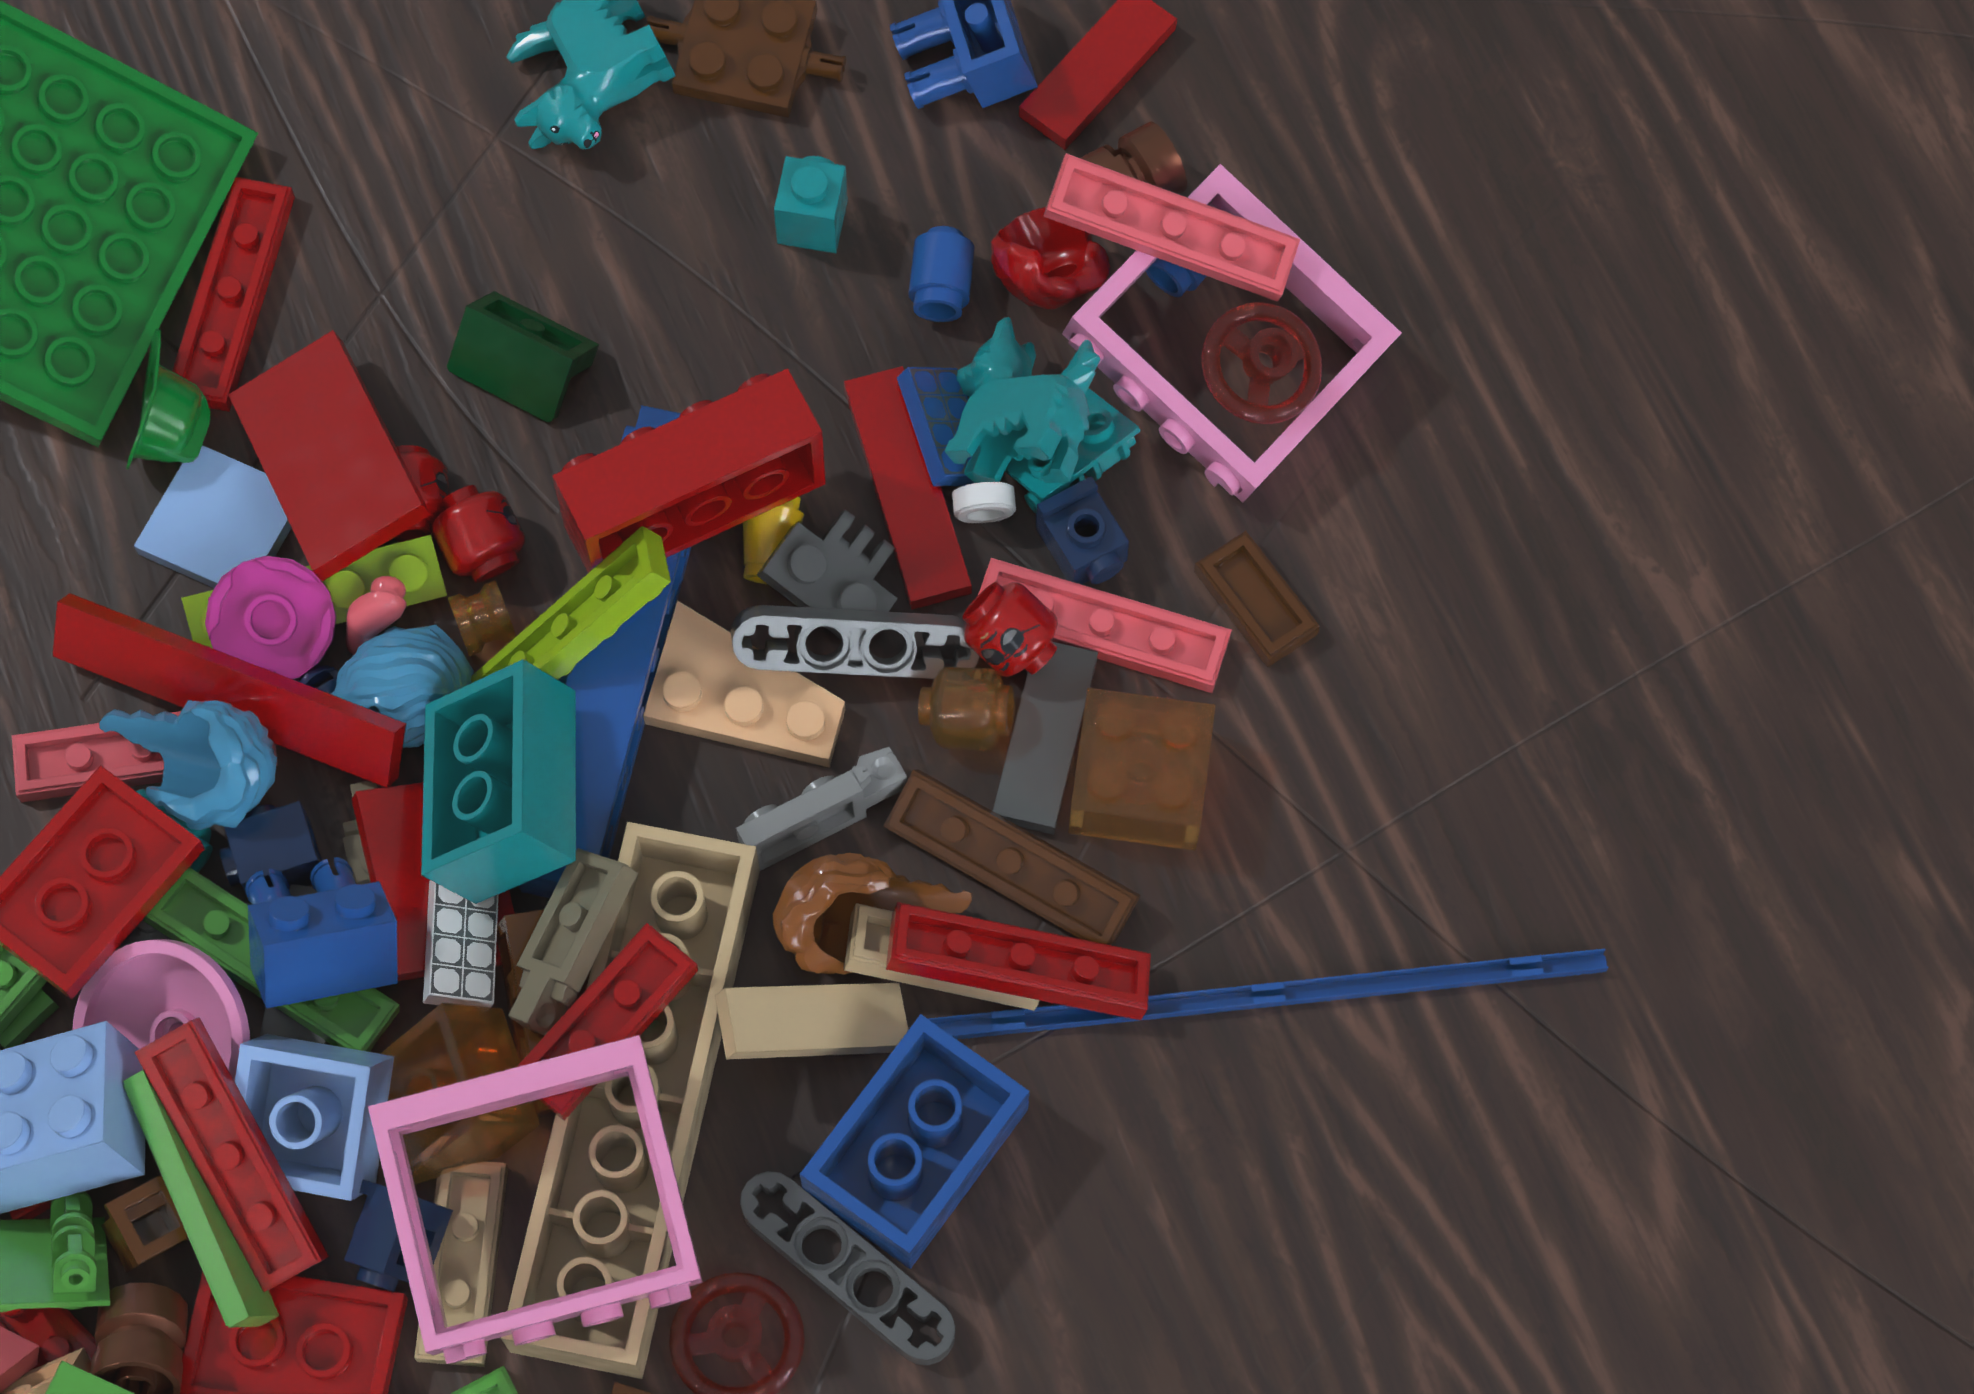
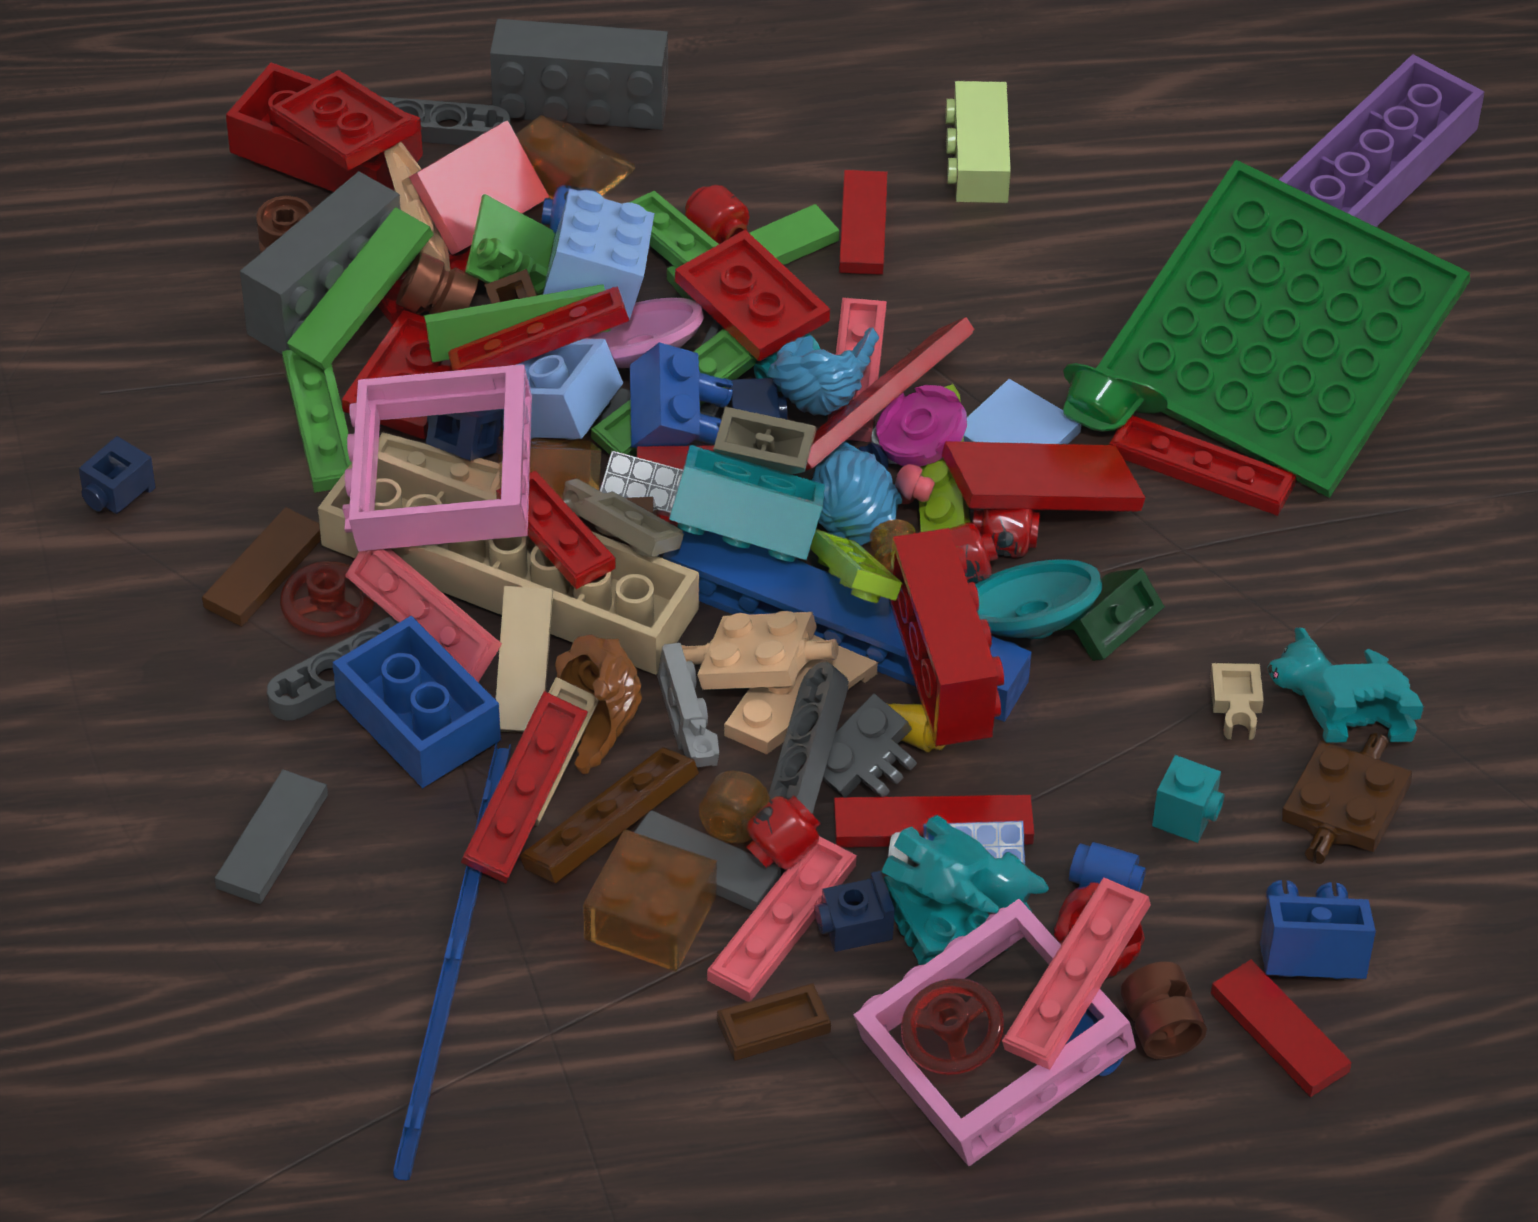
camera: 105 degrees right, 20 degrees down
(391, 777) = (765, 440): none -> dark tan slope
(514, 411) = (1037, 597): none -> teal dish
(619, 185) = (1237, 693): none -> tan plate
(714, 735) = (759, 650): none -> light nougat plate
(767, 1172) = (407, 593): none -> coral tile
(1162, 1277) = (271, 836): none -> dark grey tile

